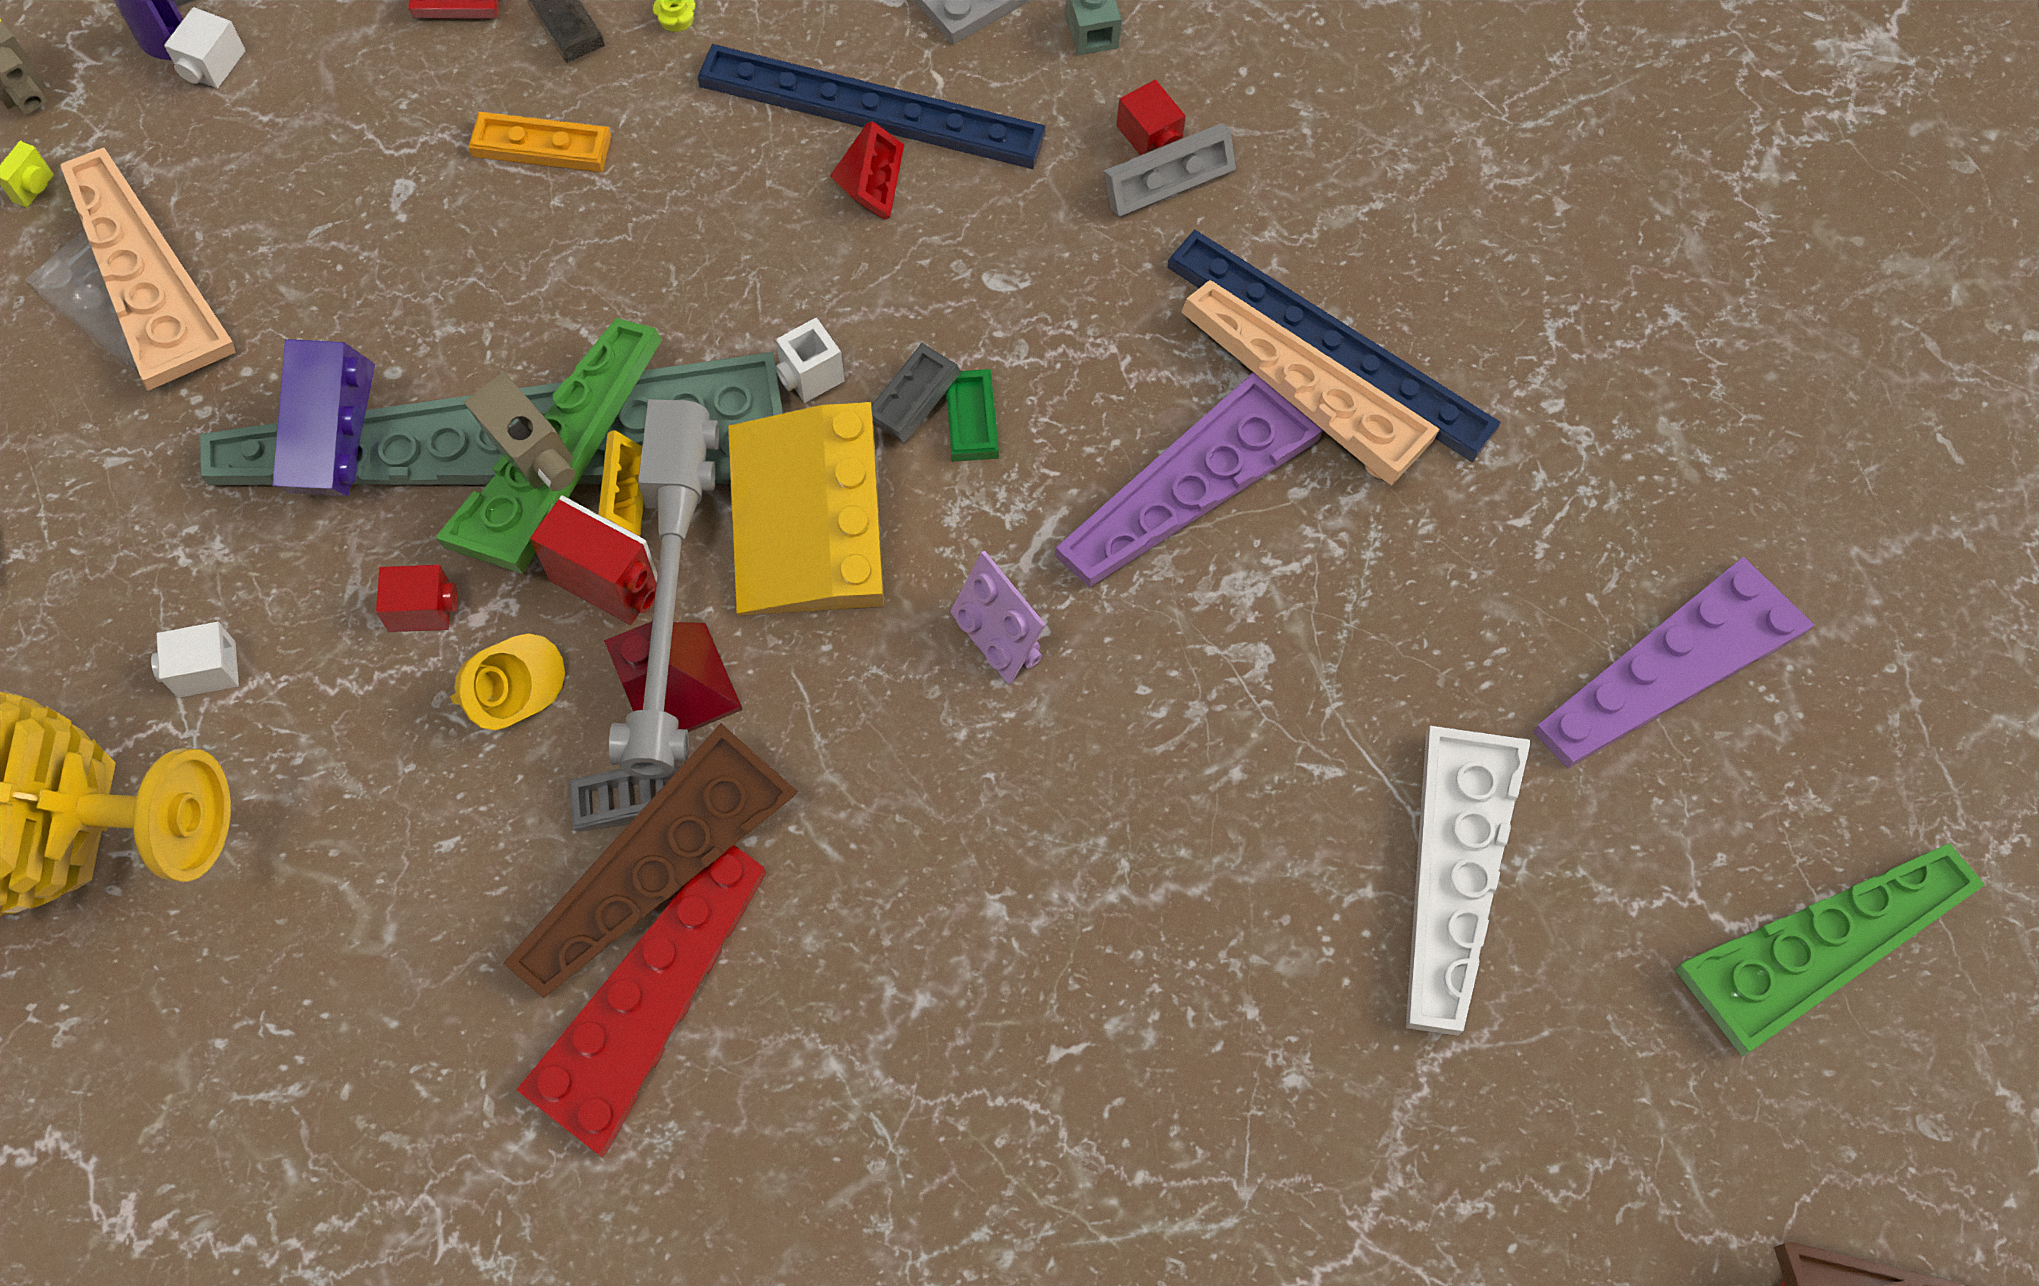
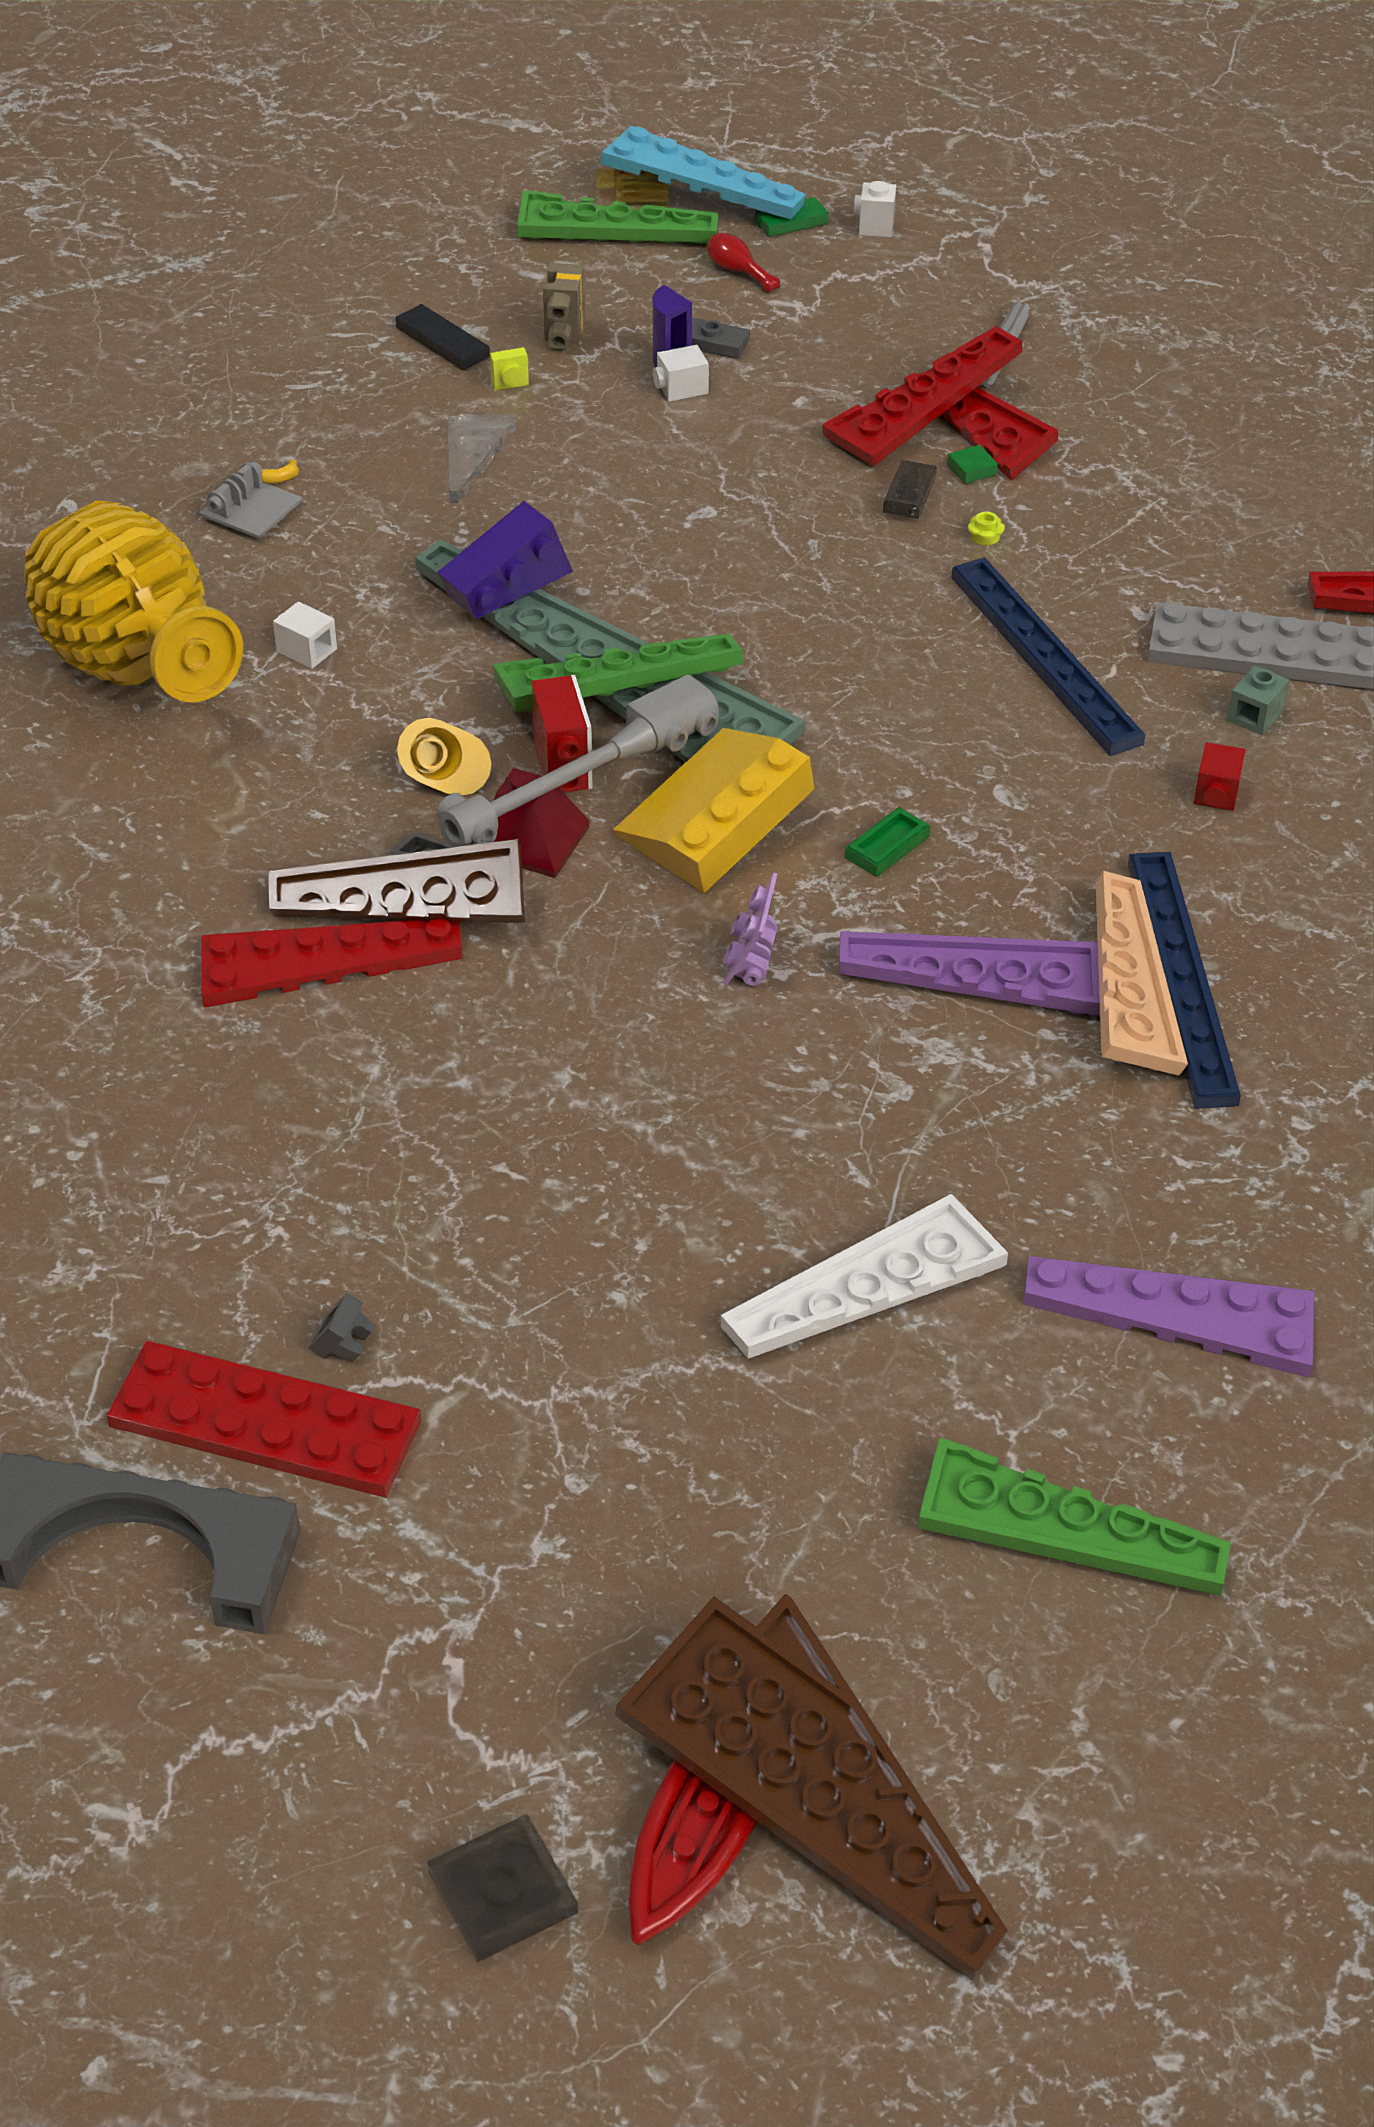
camera: 50 degrees right, 20 degrees down
(153, 296) = (503, 463): light nougat wing -> none
(415, 598) = (447, 689): red brick -> none
(531, 442) = (595, 645): dark tan torso -> none
(540, 141) = (815, 539): light orange tile -> none
(620, 492) = (609, 710): yellow slope -> none
(809, 360) = (818, 734): white brick -> none
(871, 169) = (999, 682): red slope -> none
(913, 392) = (863, 801): dark grey plate -> none
(1170, 169) = (1195, 808): light grey hinge -> none

